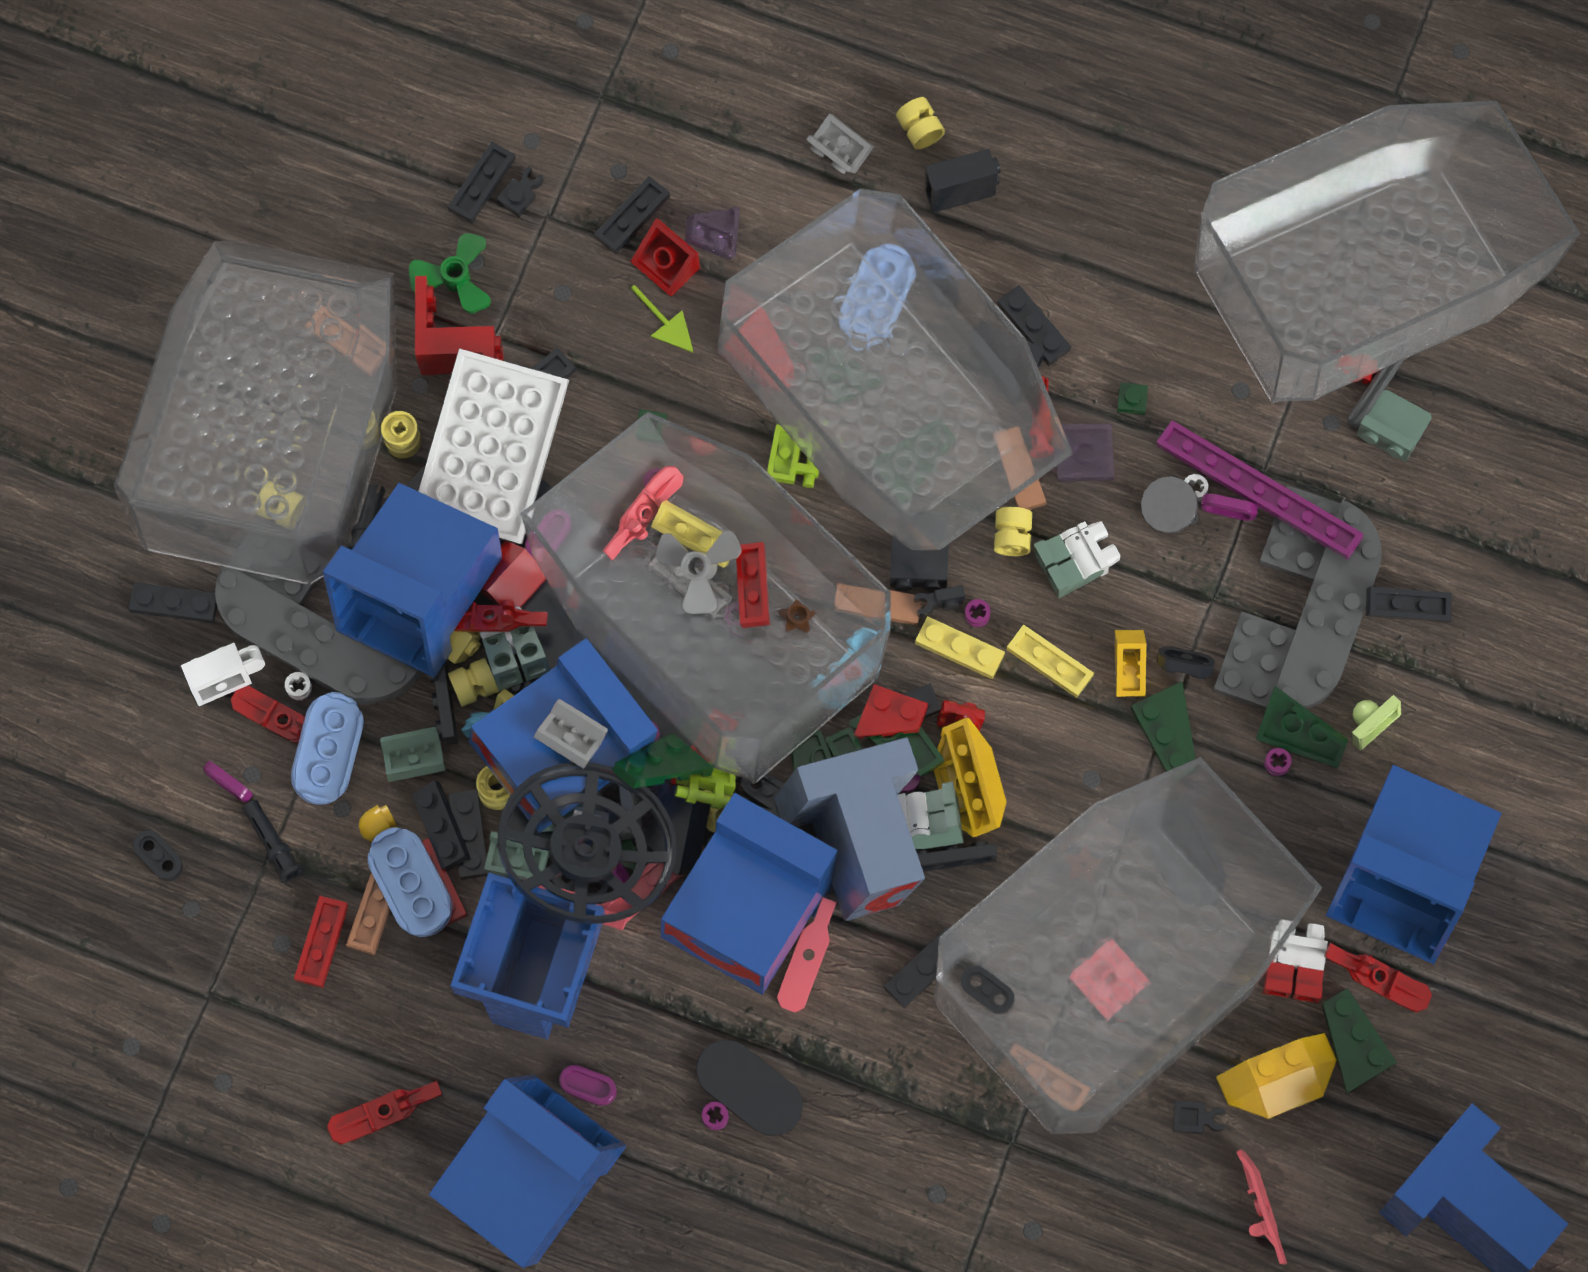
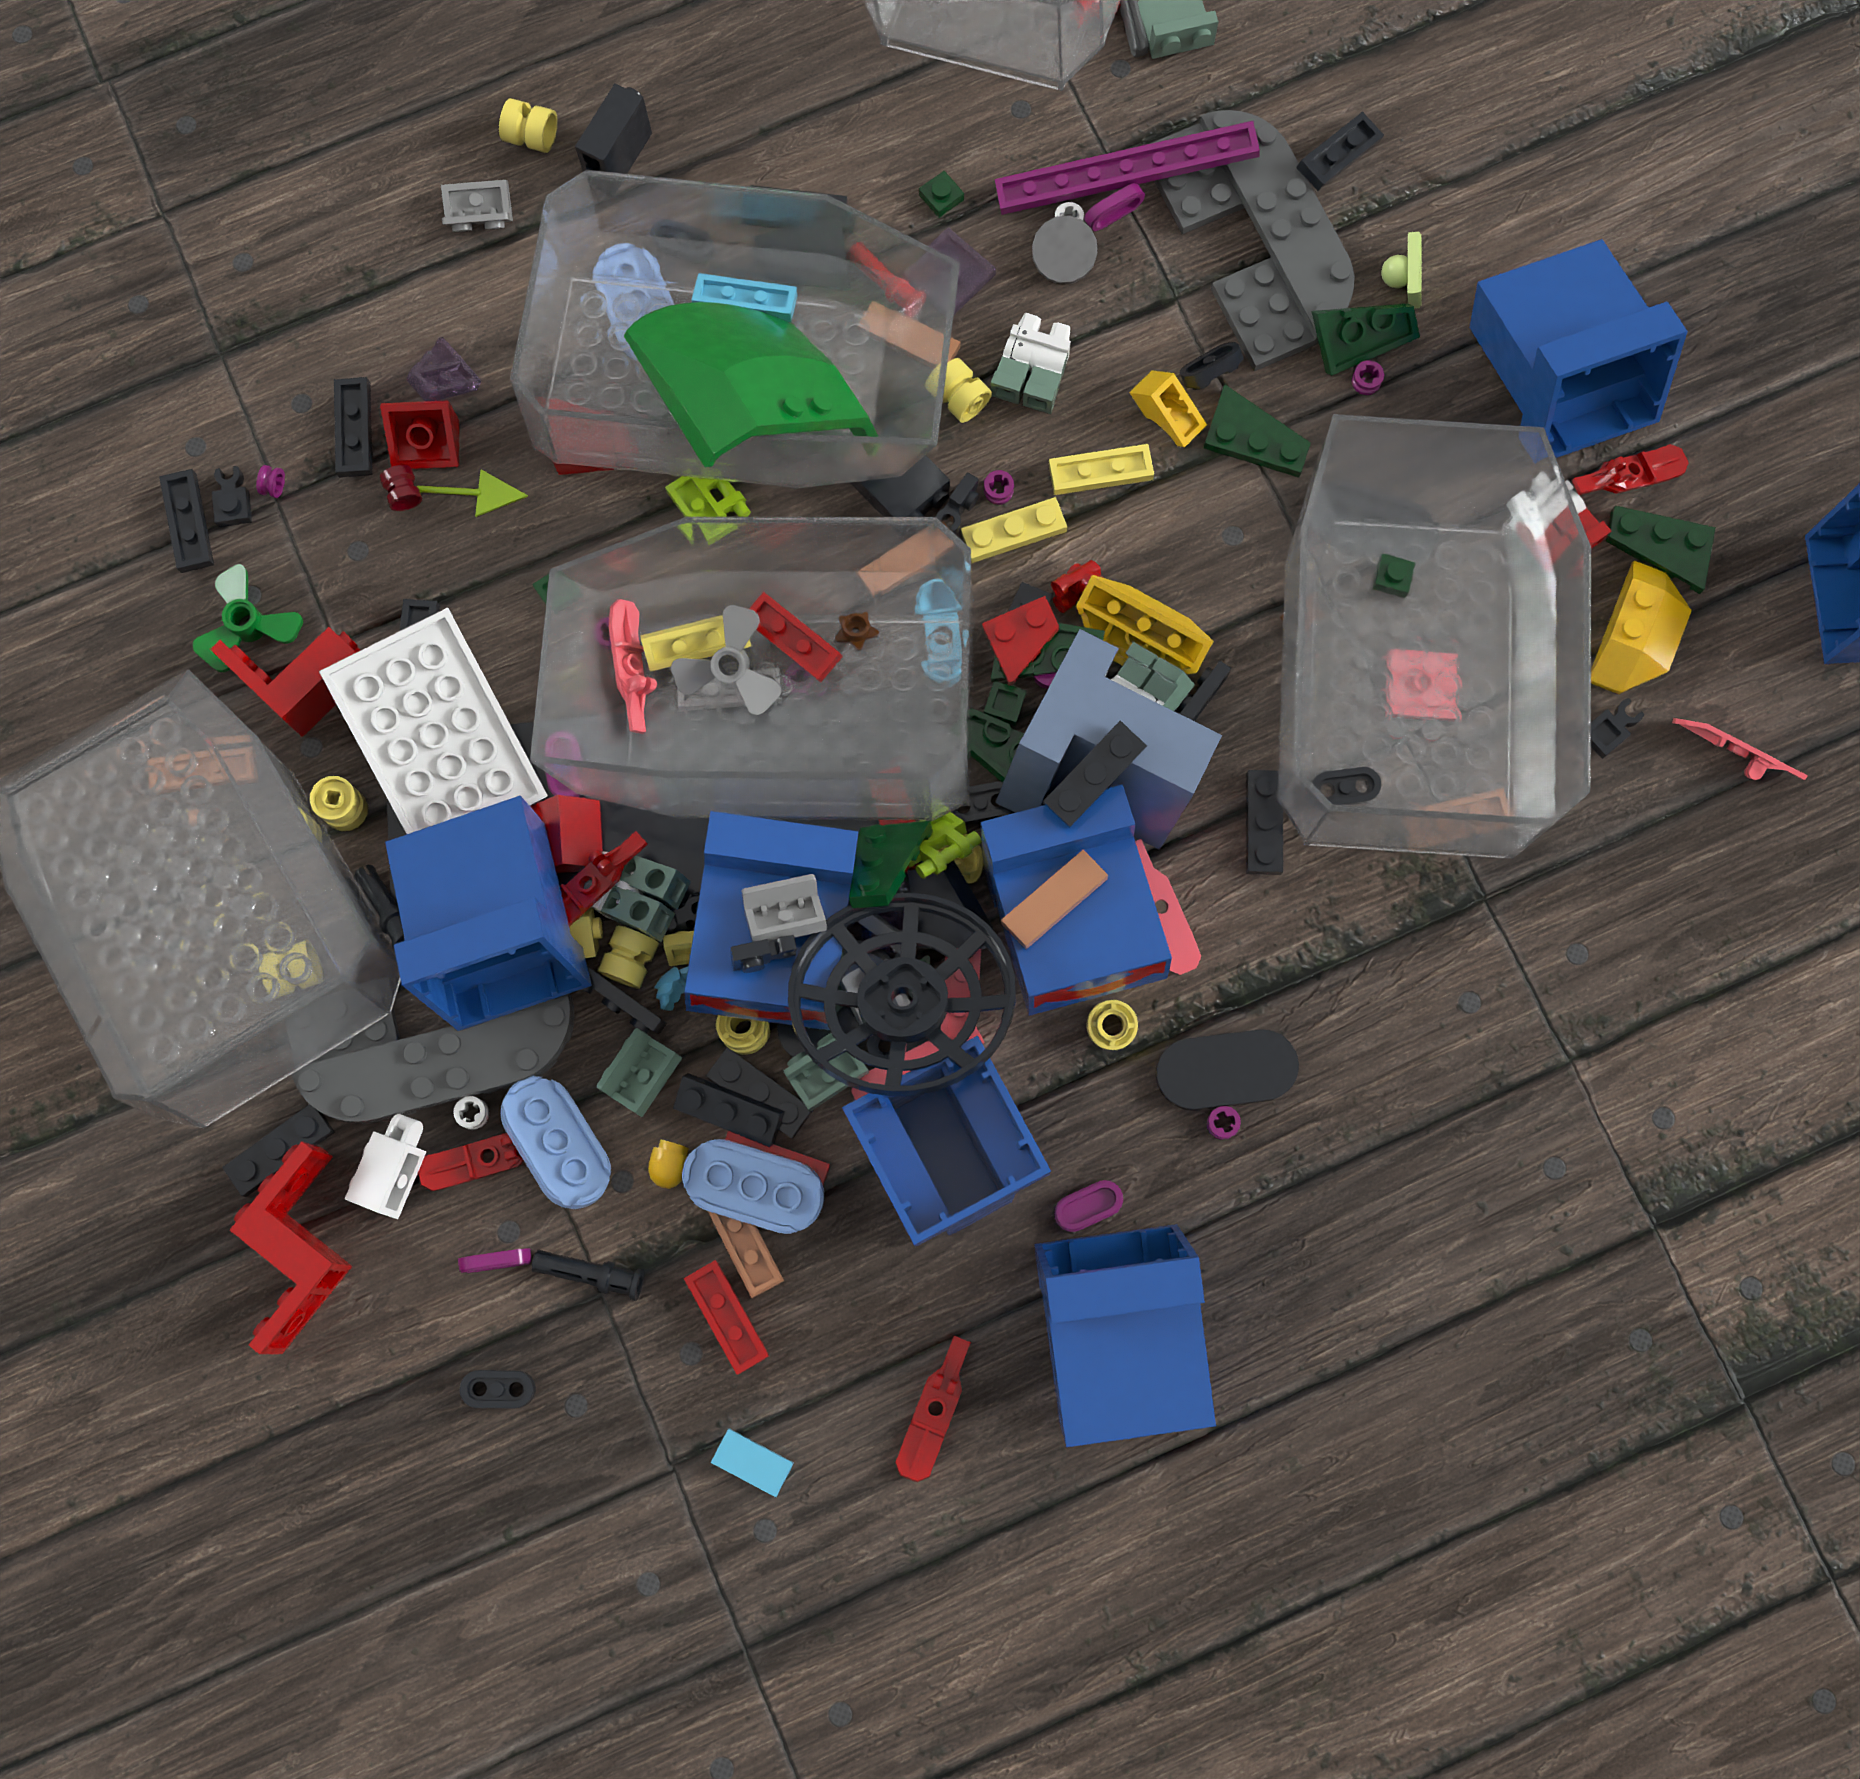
camera: 45 degrees left, 5 degrees up
(125, 663) = (290, 1247): none -> red bracket
(253, 1037) = (752, 1462): none -> medium azure tile
(528, 742) = (753, 955): none -> black plate
(552, 203) = (270, 481): none -> magenta bush
(622, 279) = (401, 489): none -> dark red wheel
(695, 990) = (1128, 1021): none -> light yellow wheel
(733, 878) = (1054, 899): none -> nougat tile
(823, 827) = (1095, 773): none -> black plate
(870, 403) = (740, 376): none -> green windscreen
(935, 353) = (760, 296): none -> medium azure plate
(1154, 894) = (1393, 575): none -> dark green plate

